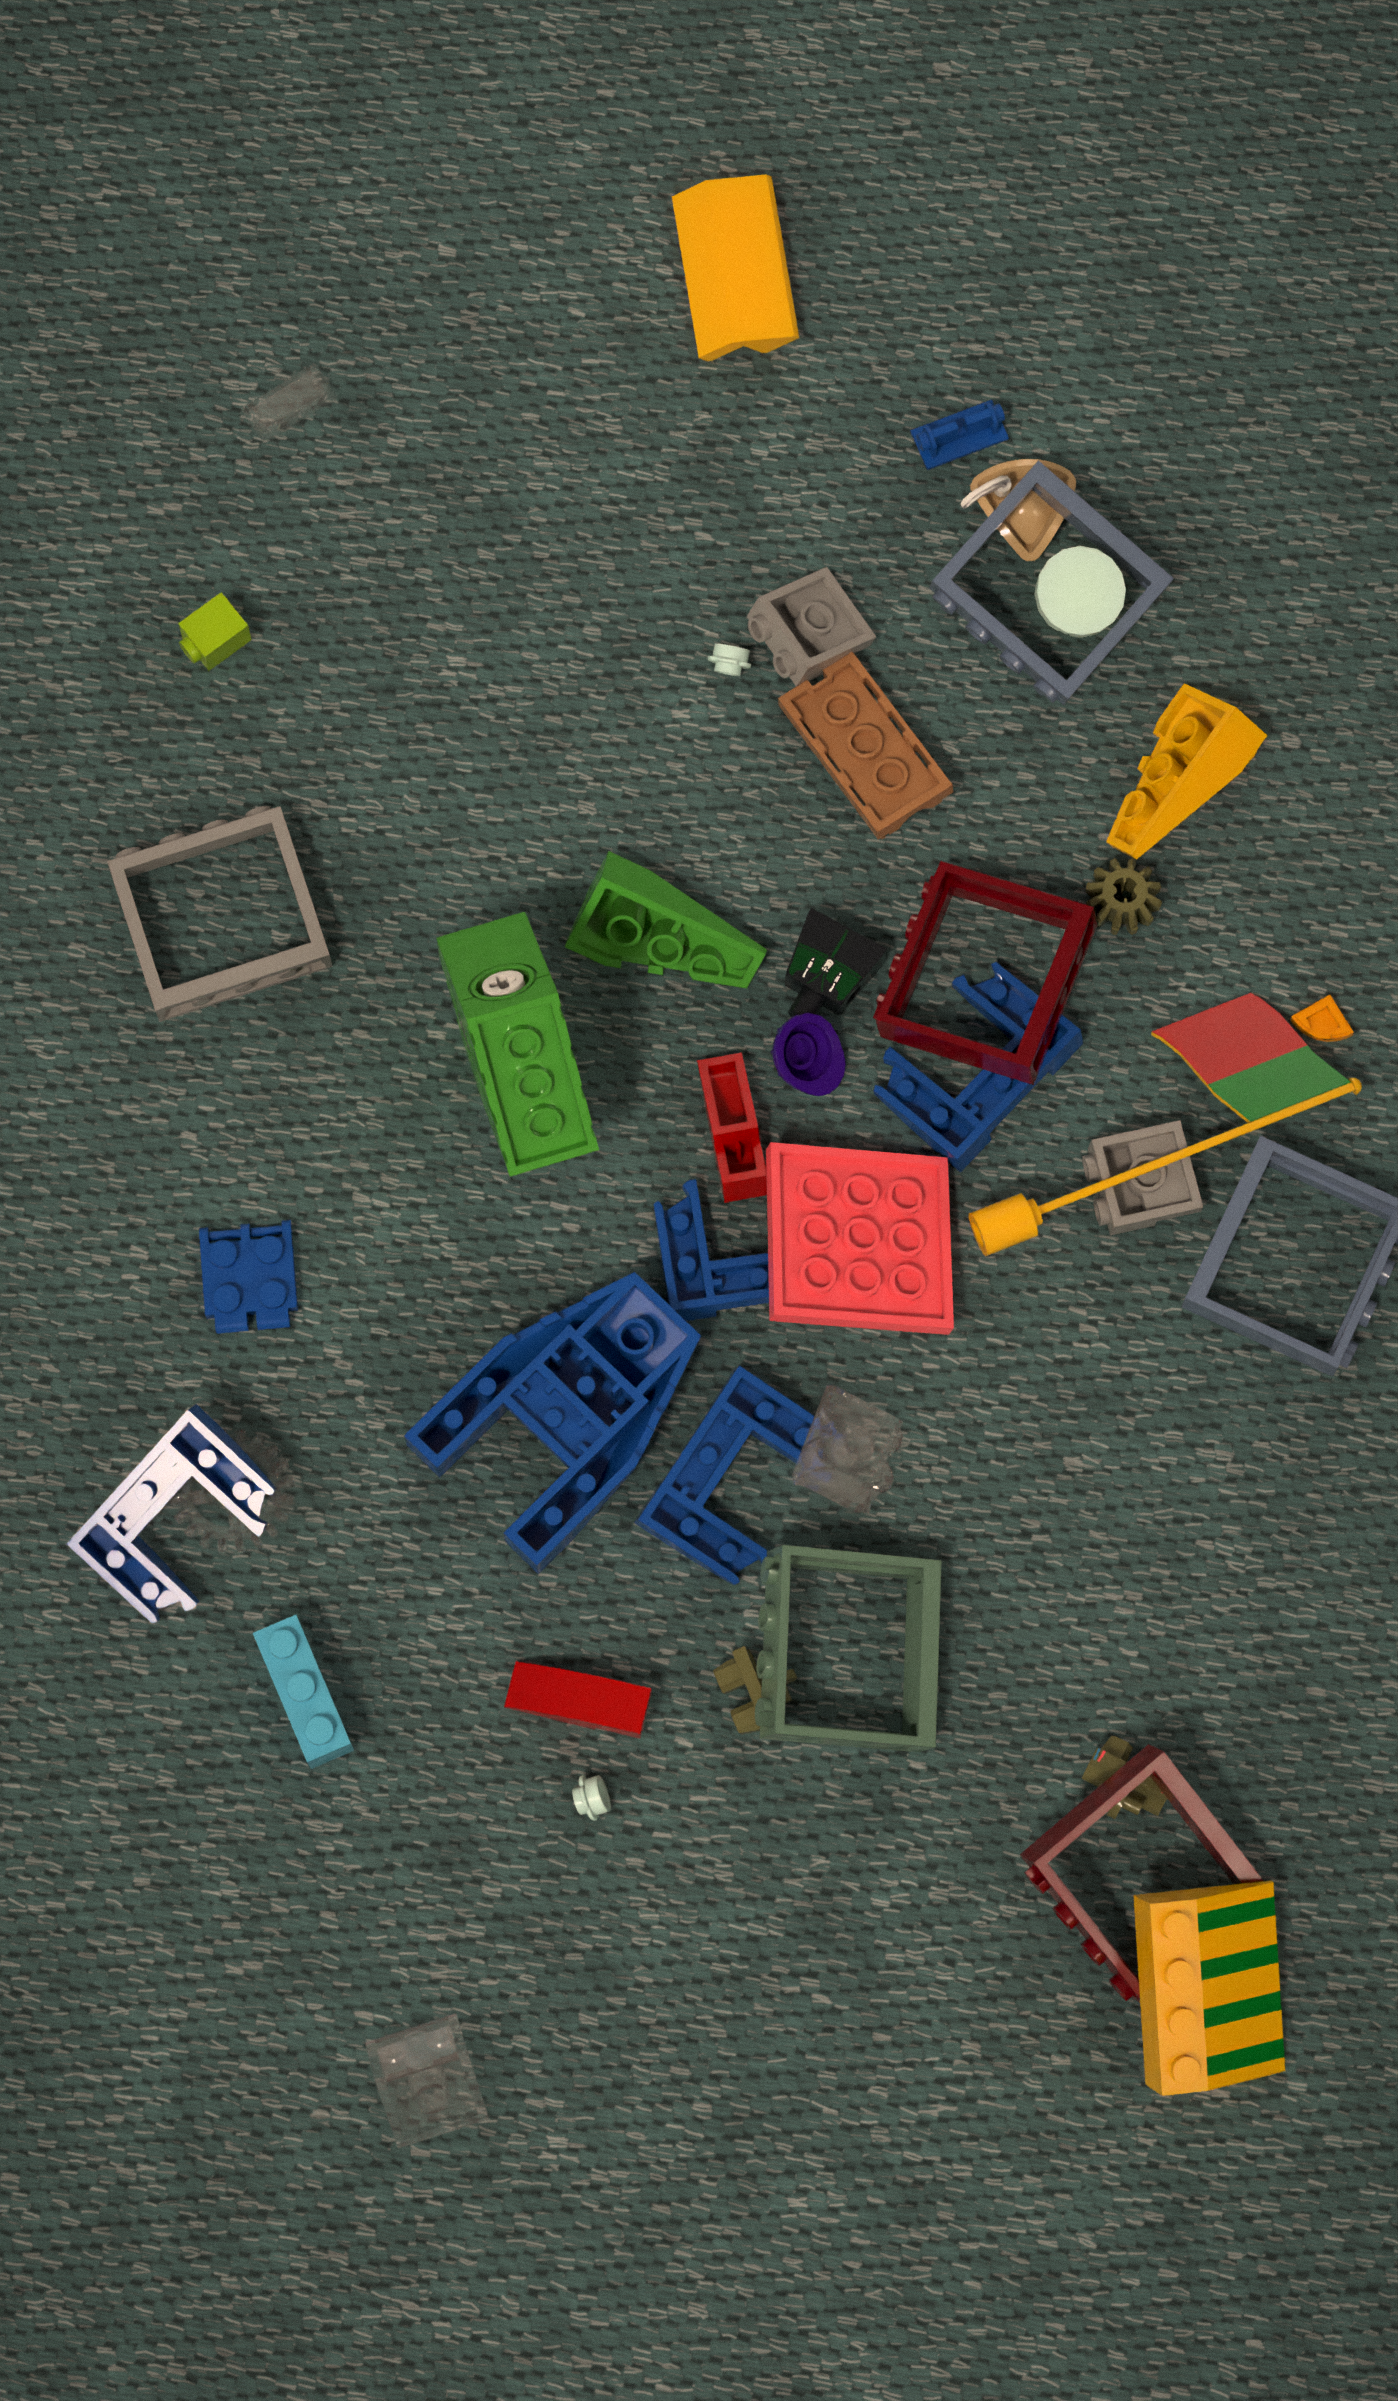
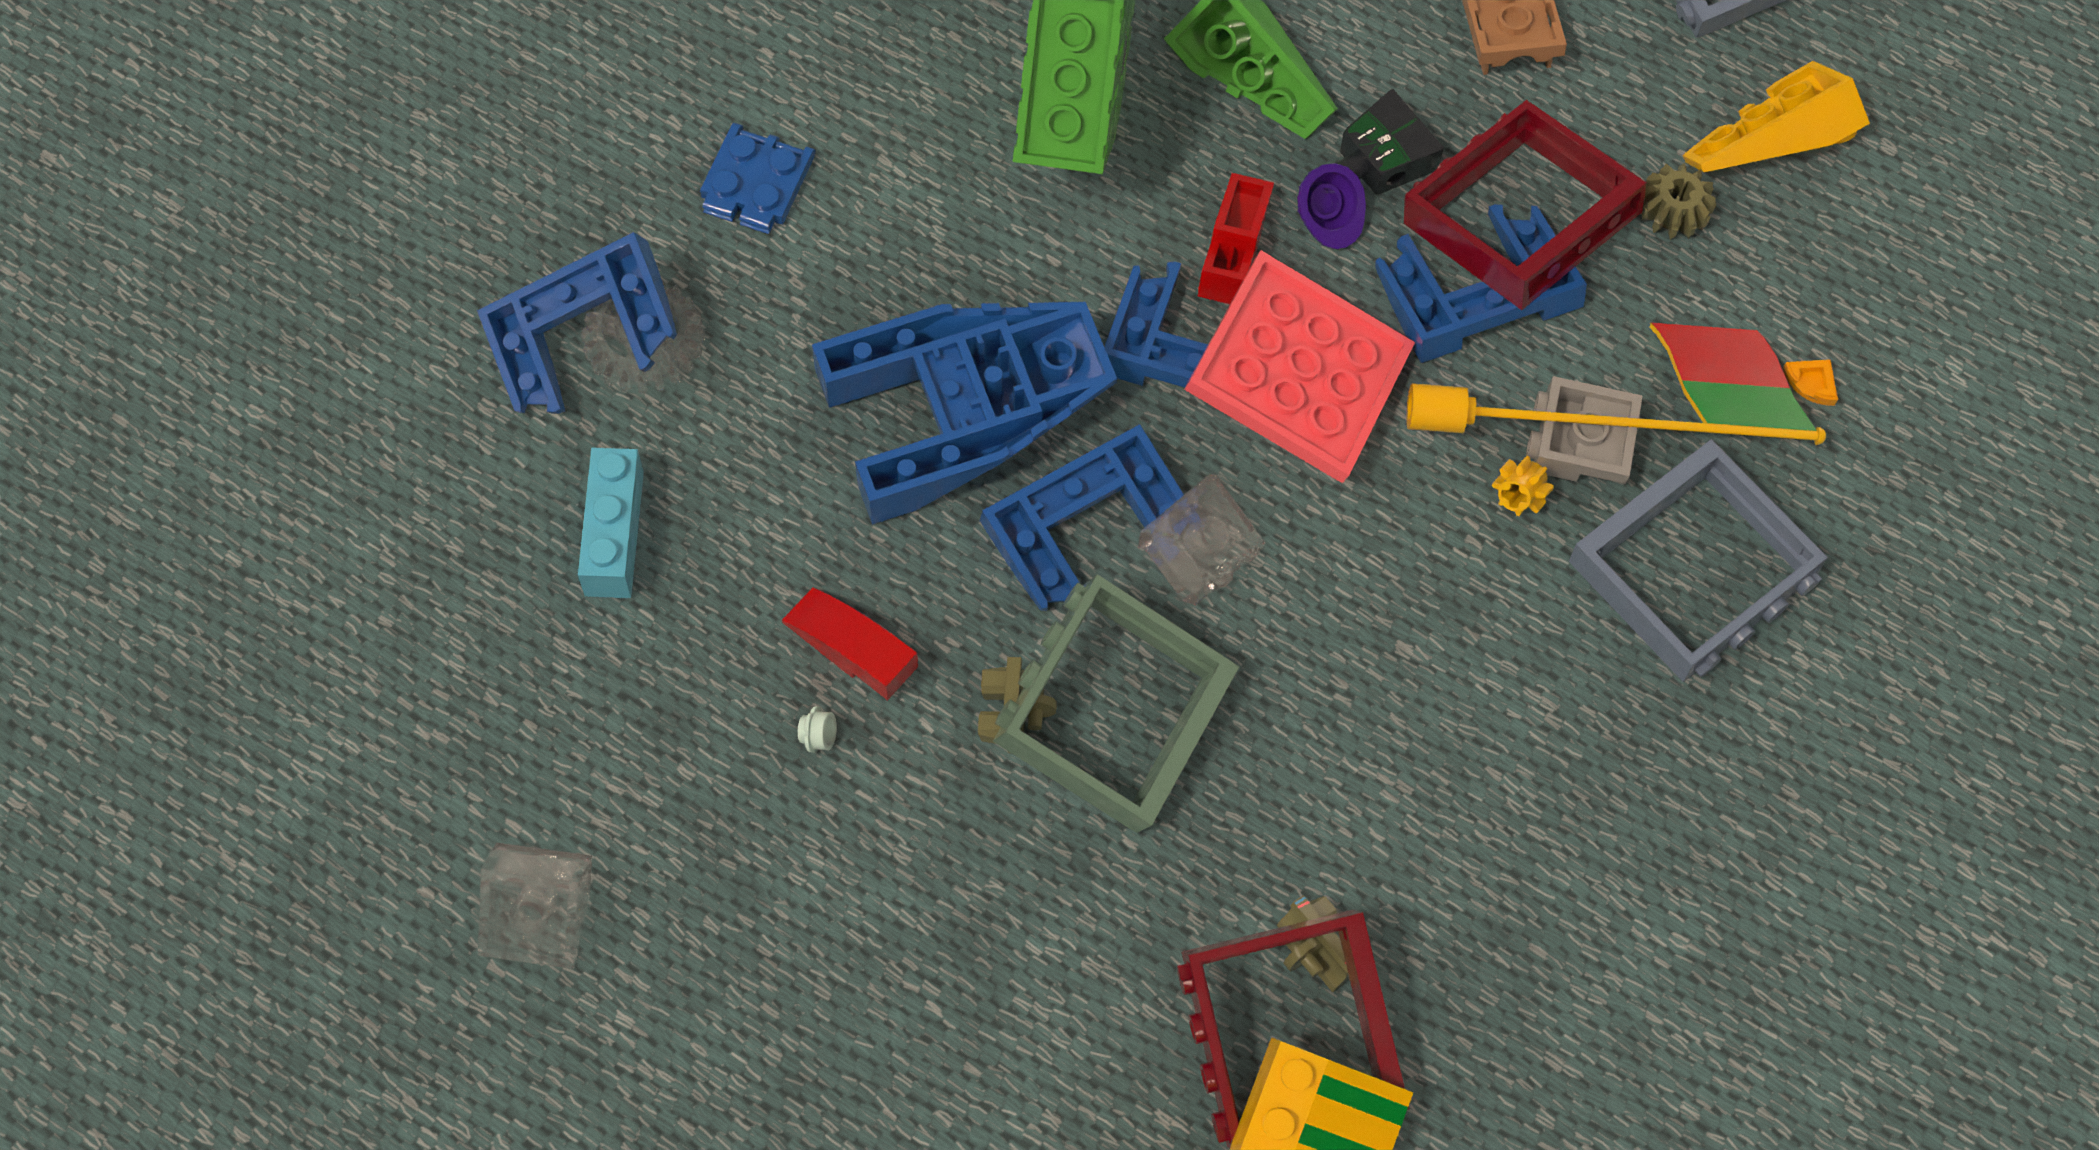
camera: 25 degrees right, 10 degrees down
(1110, 1258) = (1522, 486): none -> yellow gear

